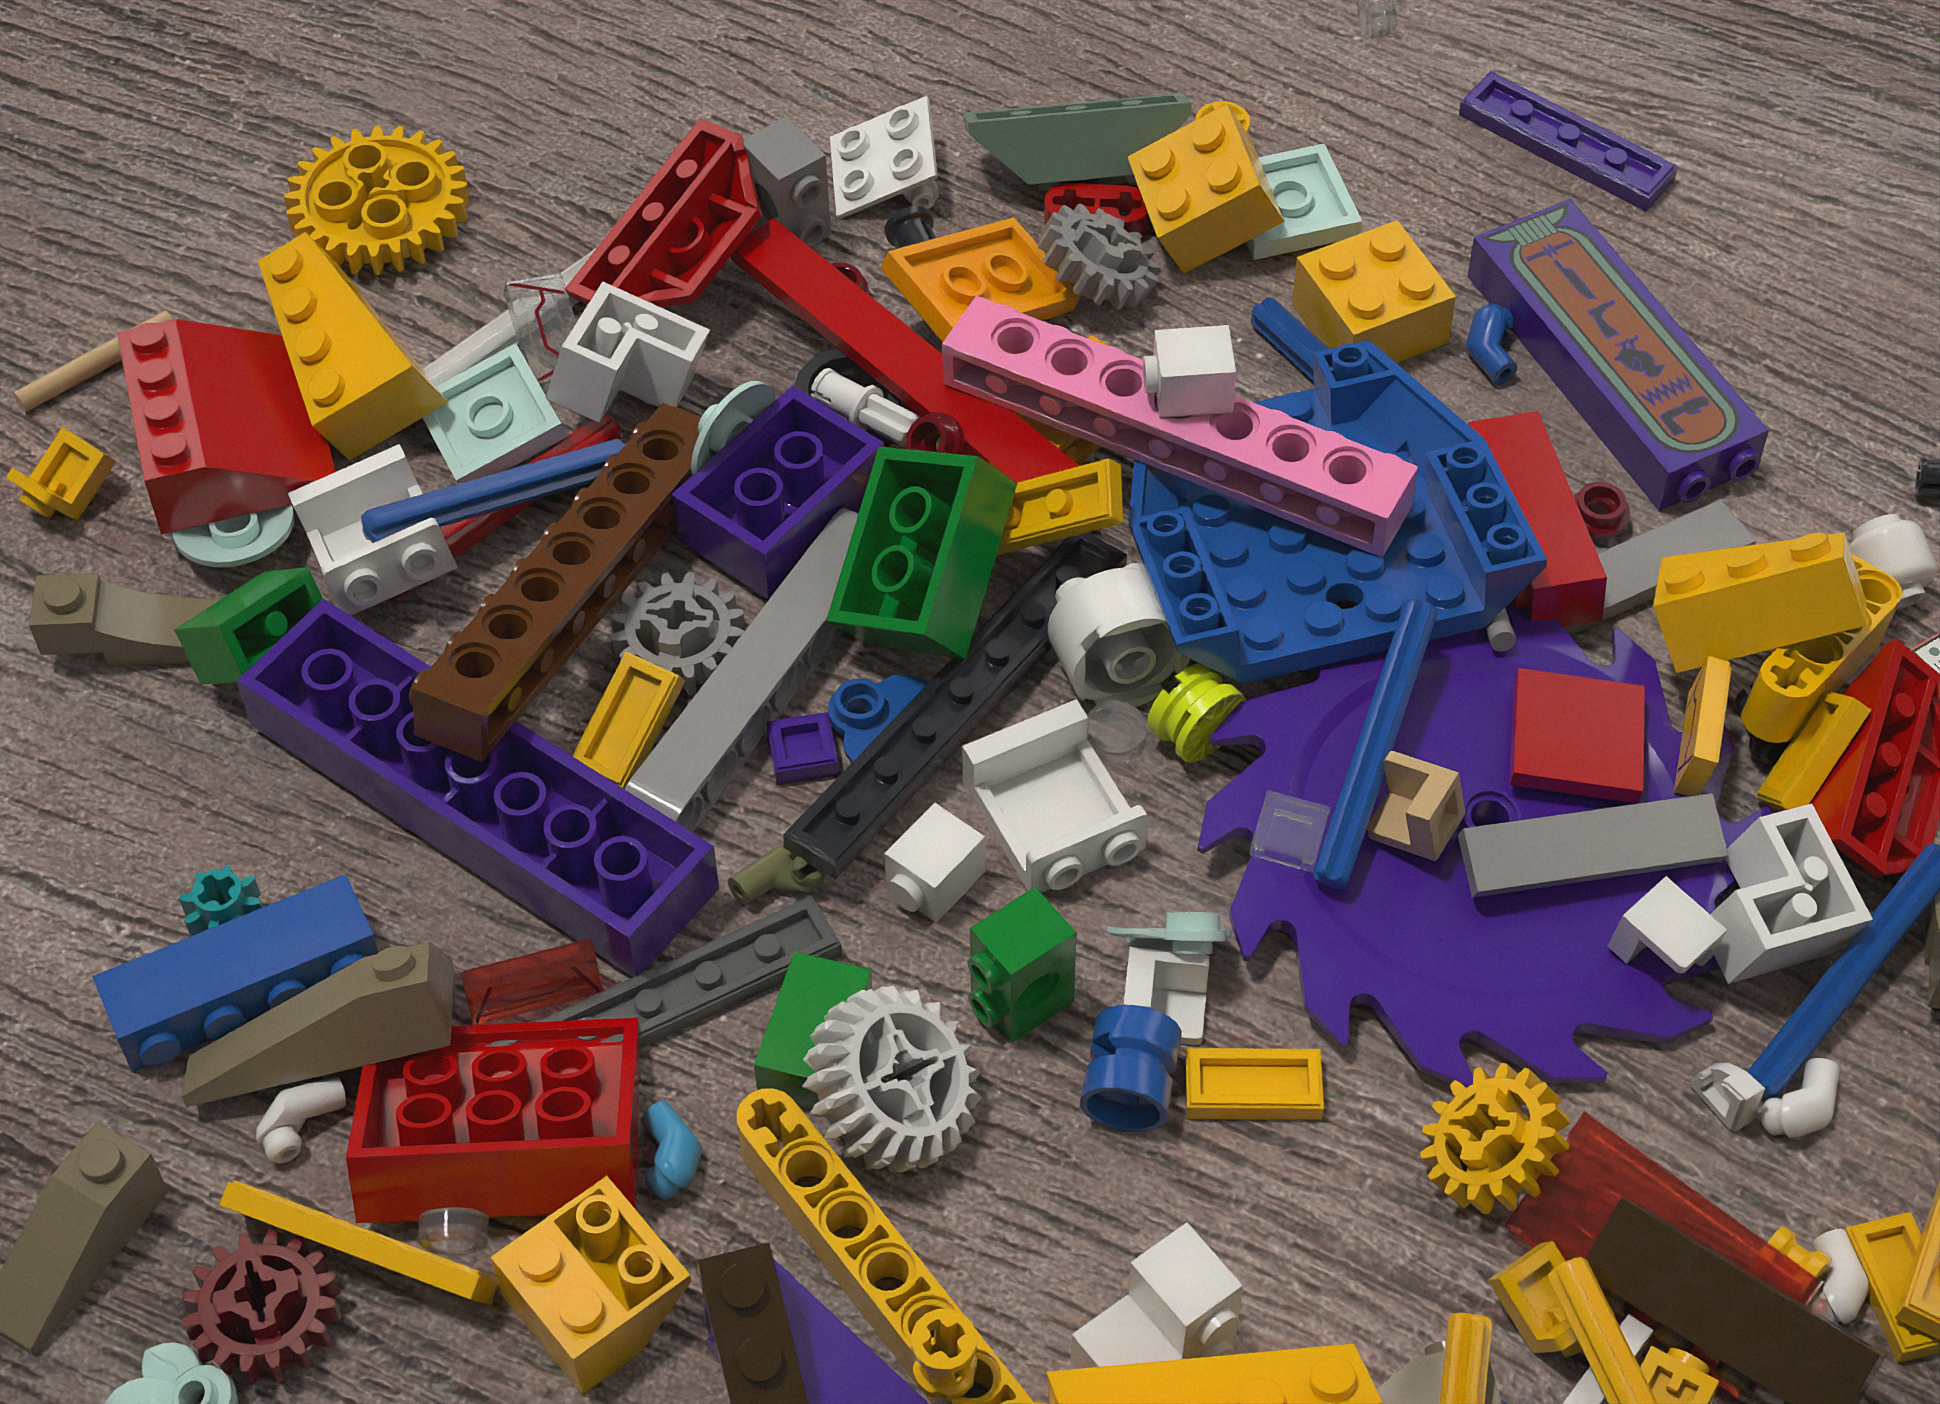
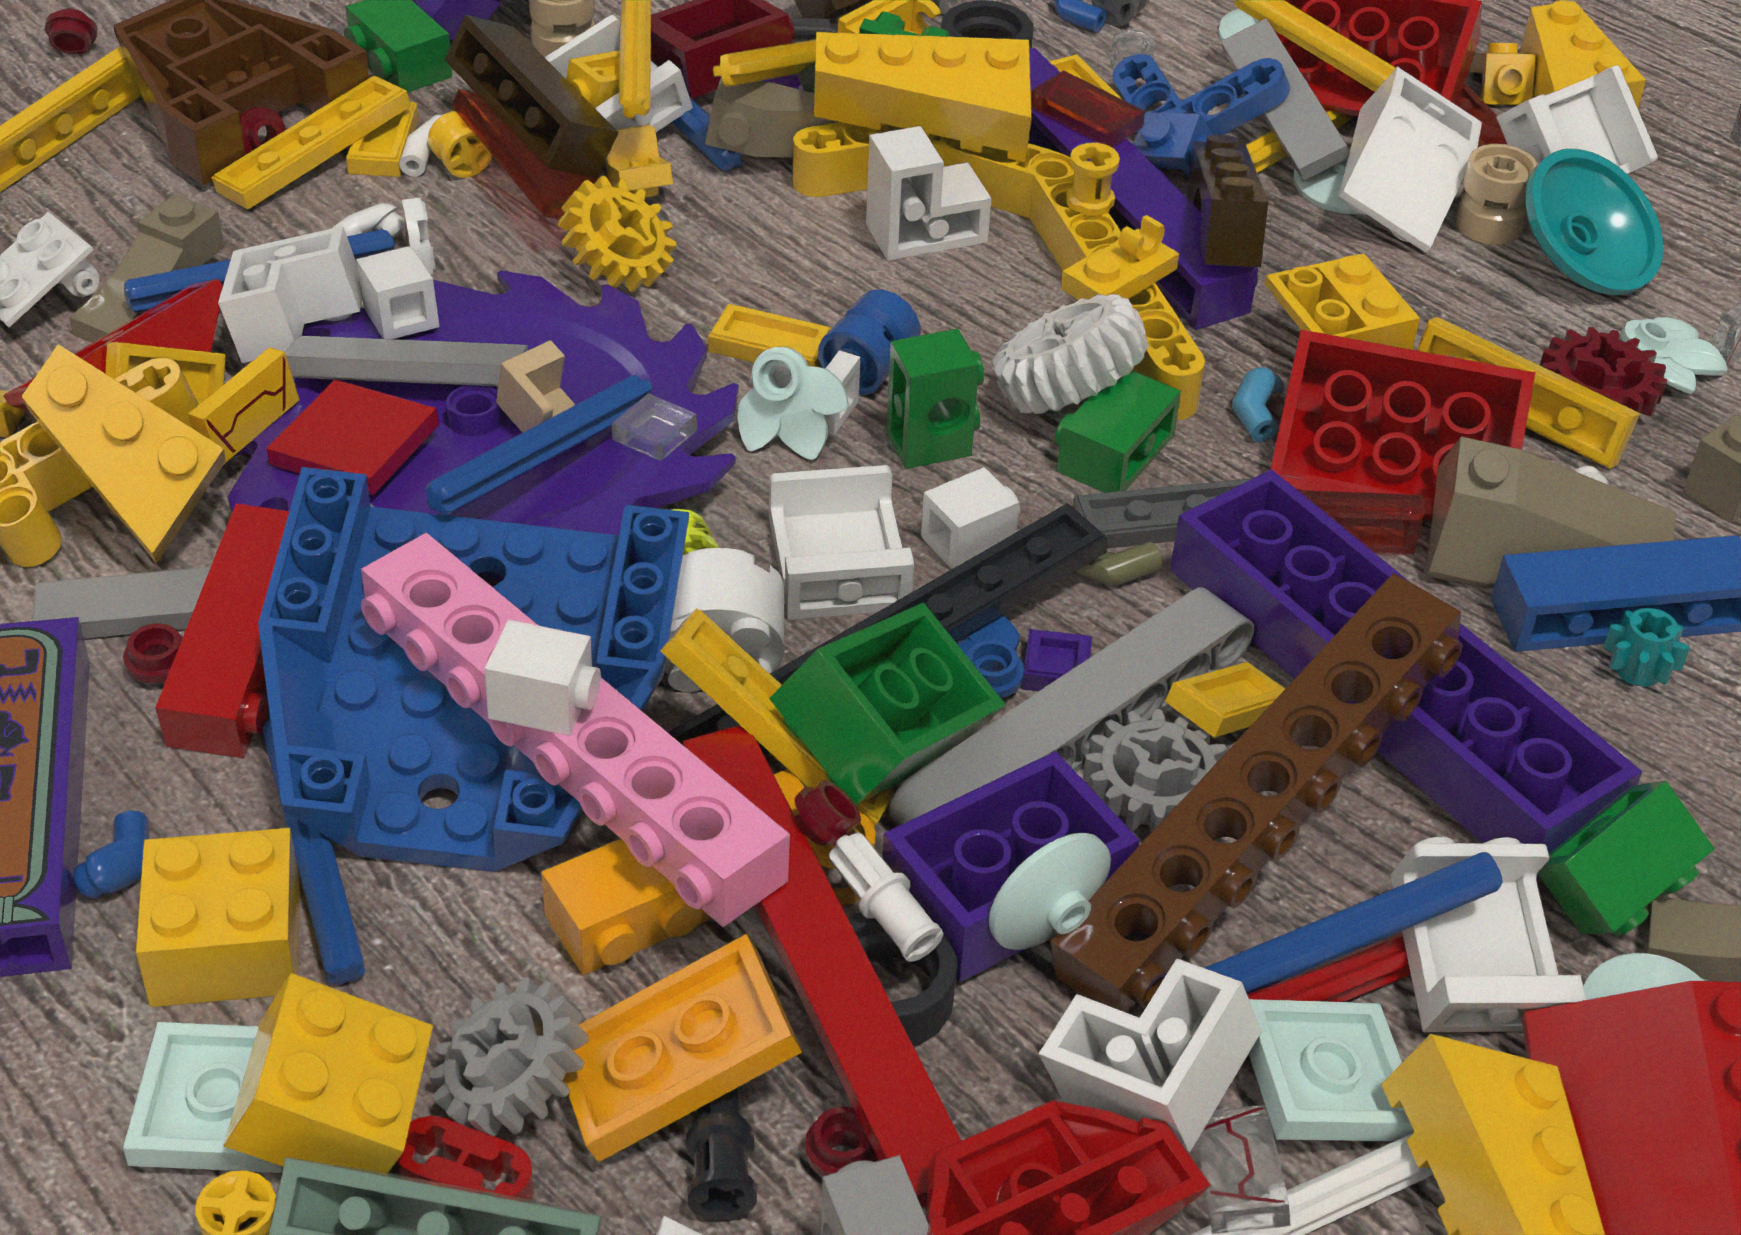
camera: 165 degrees left, 10 degrees down
(869, 1225) = (1123, 266): none -> yellow plate

